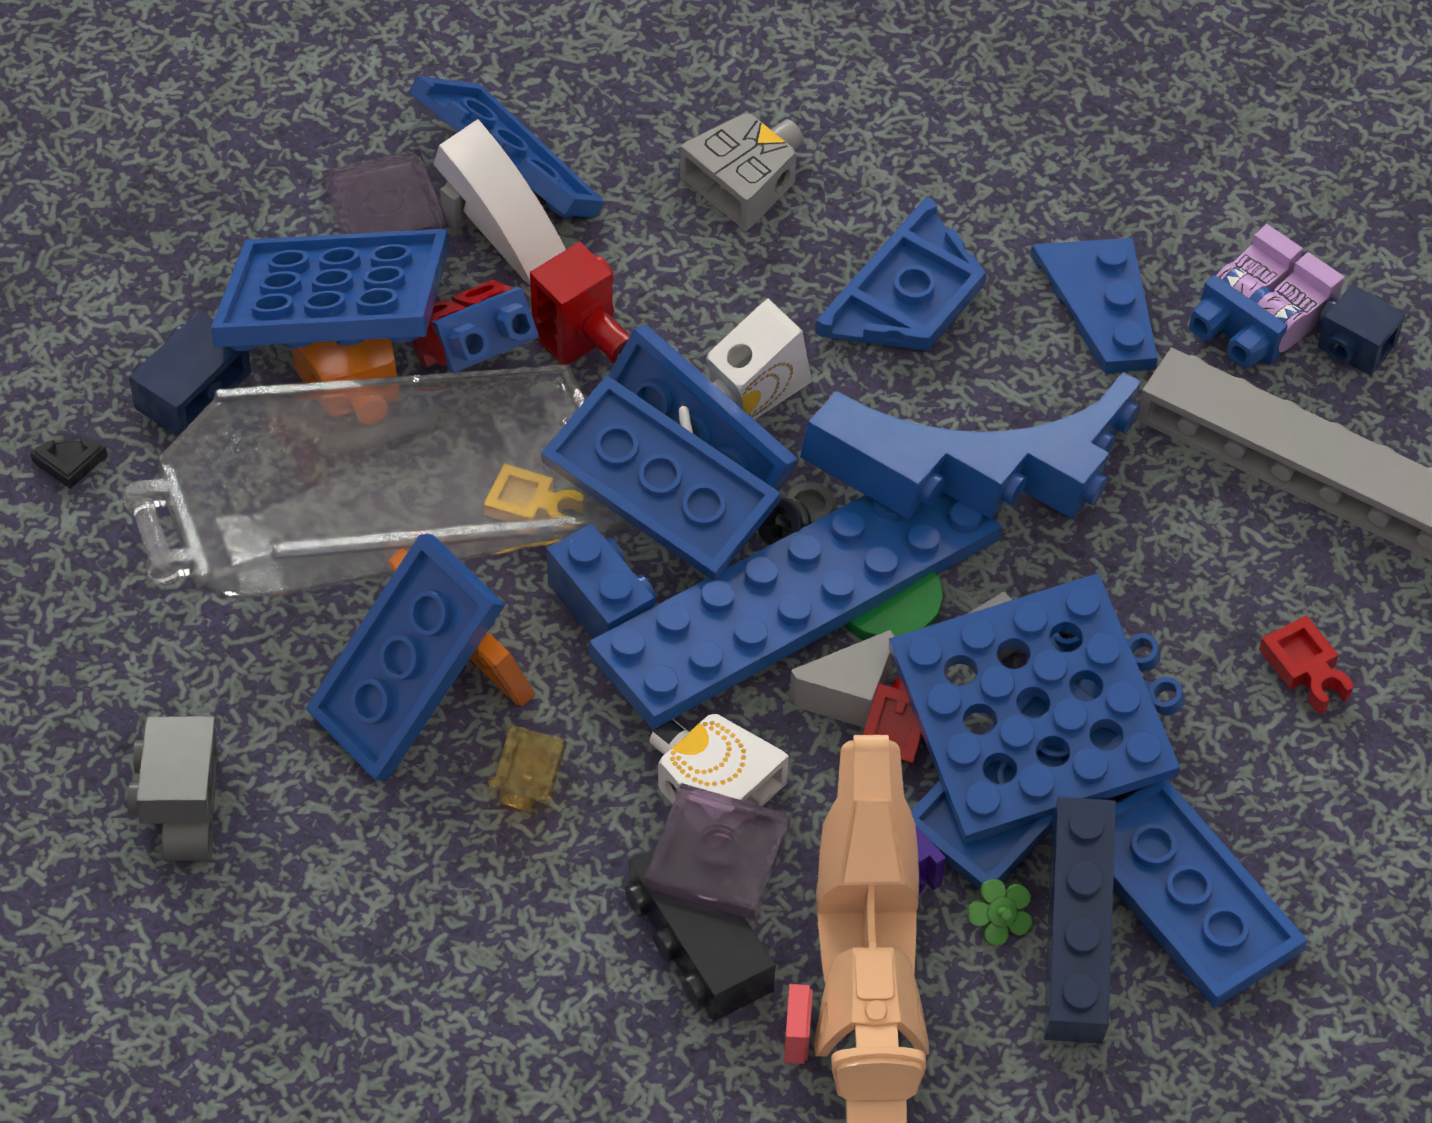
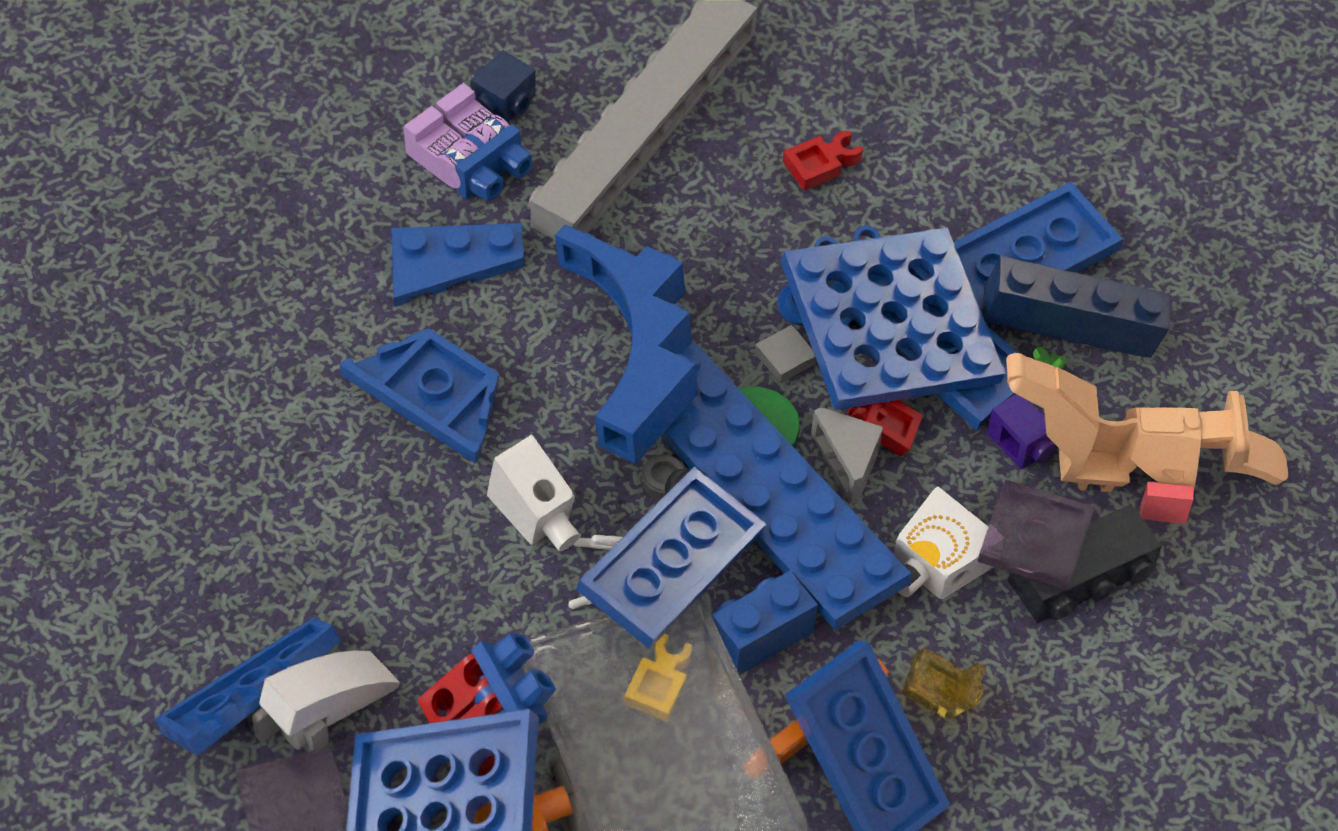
camera: 90 degrees left, 0 degrees up
(575, 306) = (462, 617): red brick -> none
(669, 381) = (565, 552): blue wing -> none
(742, 166) = (290, 500): light grey torso -> none

